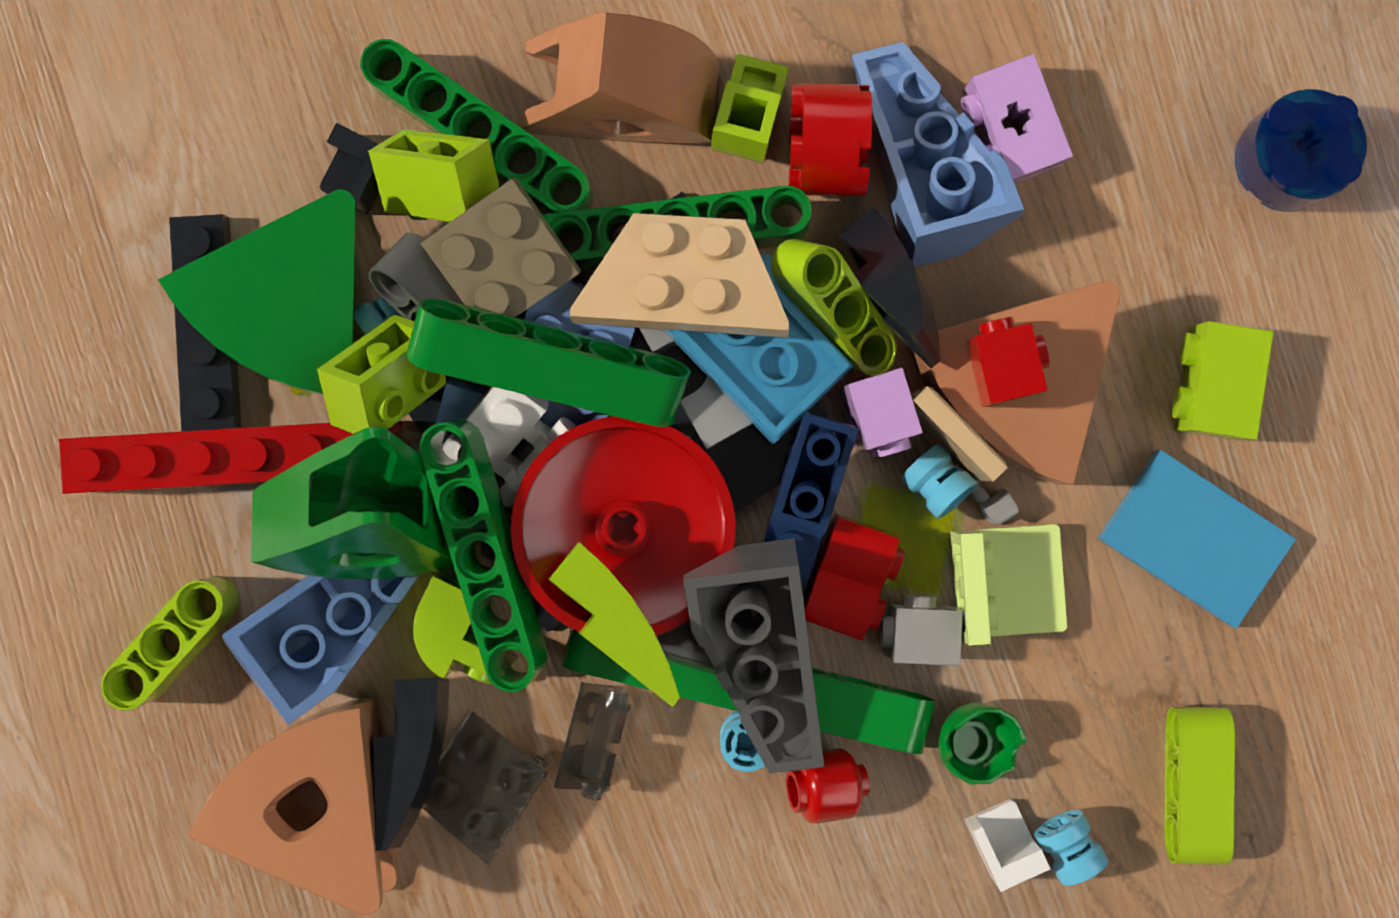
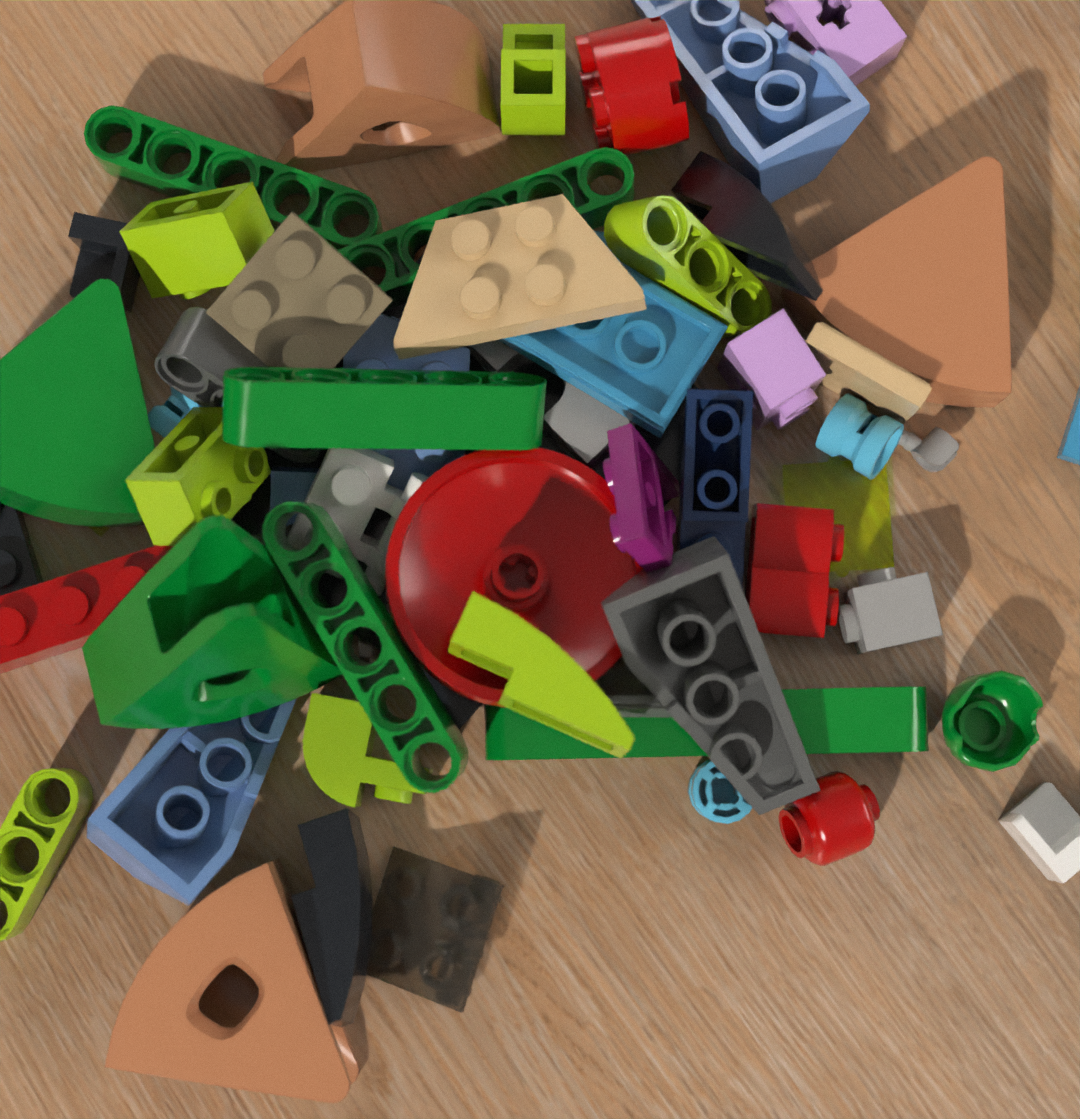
camera: 10 degrees left, 5 degrees down
(595, 724) = (542, 860): clear smoke hinge -> none
(743, 479) = (640, 488): none -> magenta wing
(1008, 361) = (899, 270): red brick -> none
(1009, 581) = (971, 528): yellowish green bracket -> none

